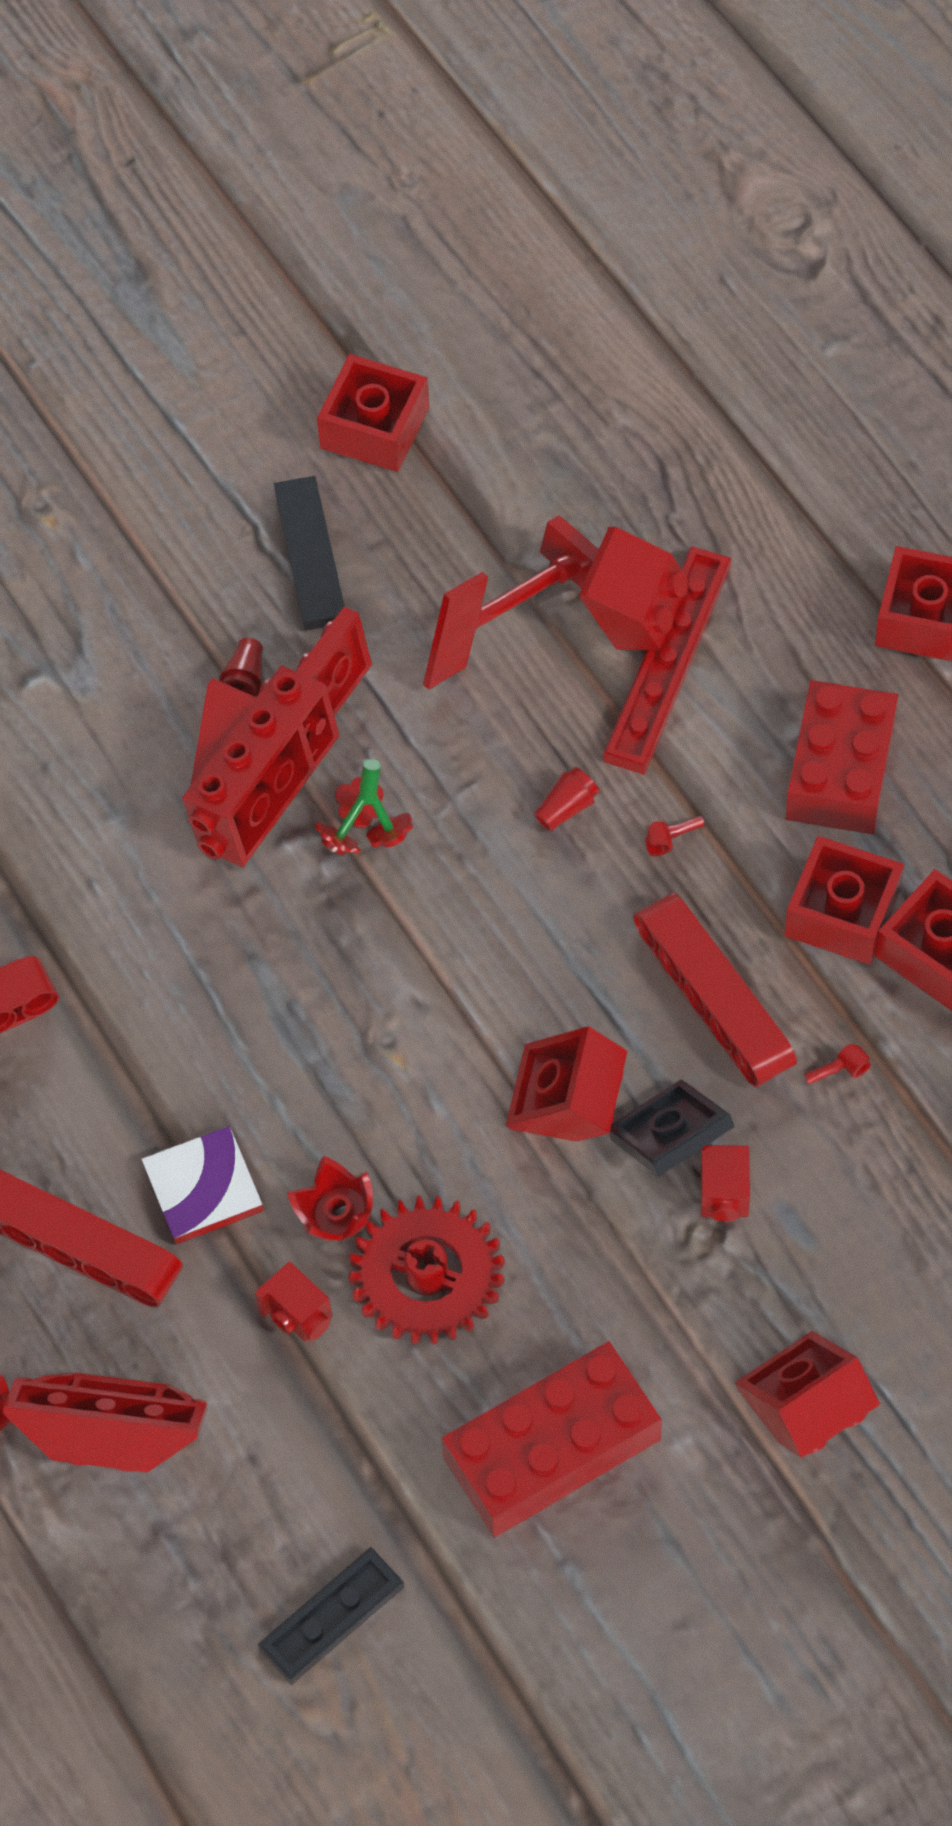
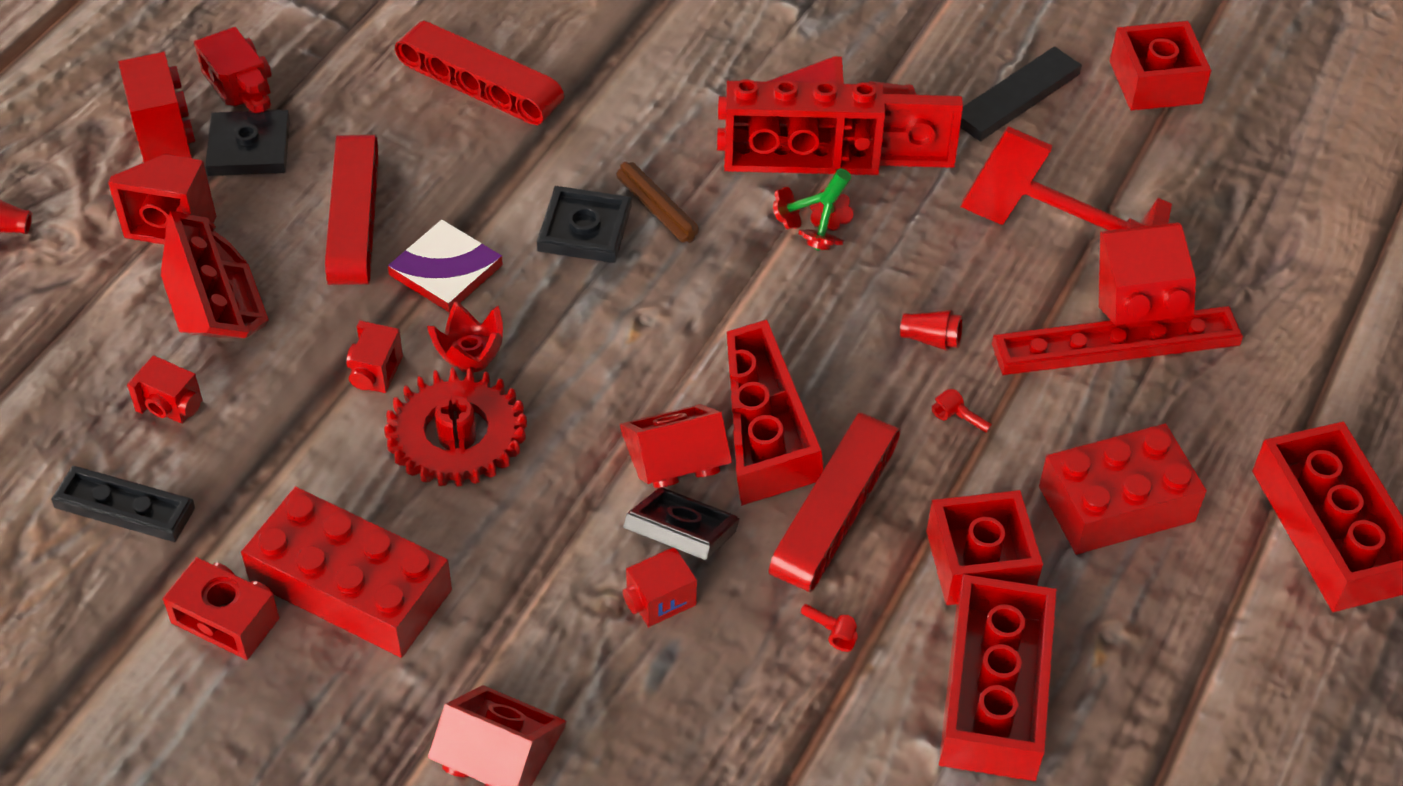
camera: 55 degrees right, 10 degrees down
(219, 1515) = (165, 390): none -> red brick
(234, 1030) = (584, 224): none -> black plate
(244, 949) = (657, 202): none -> reddish brown axle
(515, 1593) = (236, 627): none -> red brick
(584, 987) = (771, 429): none -> red wedge

